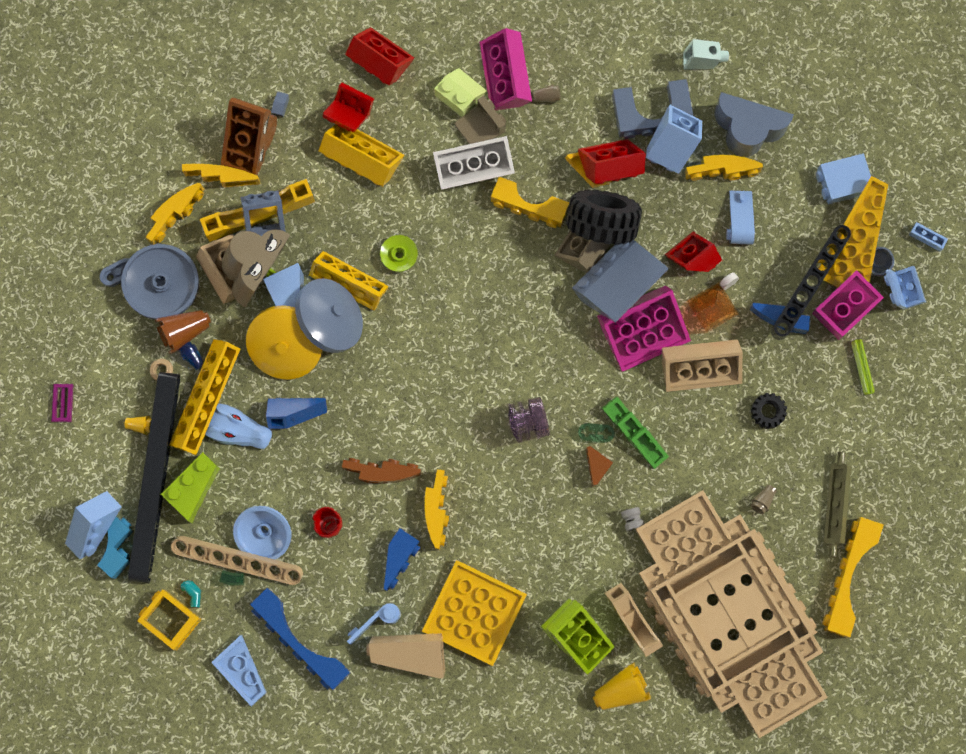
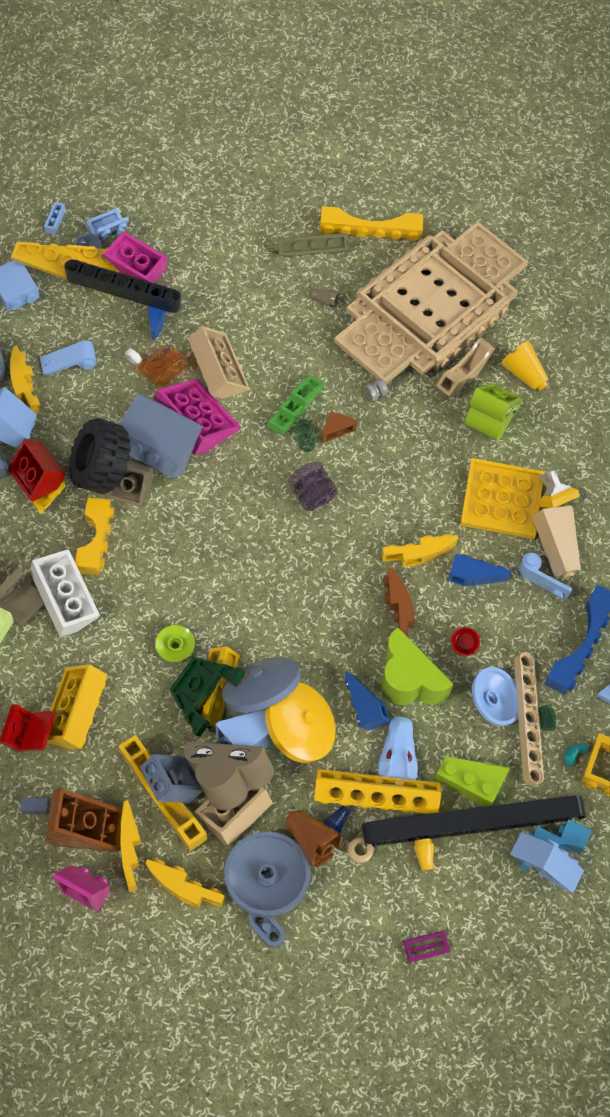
camera: 110 degrees left, 15 degrees down
(192, 125) = (82, 886): none -> dark pink slope
(305, 458) = (411, 674): none -> lime brick
(348, 259) = (195, 686): none -> dark green wing
(461, 668) = (556, 492): none -> piece
(695, 254) = (113, 388): red slope -> none
(760, 419) = (246, 315): black tyre -> none
(862, 366) = (186, 247): lime axle -> none

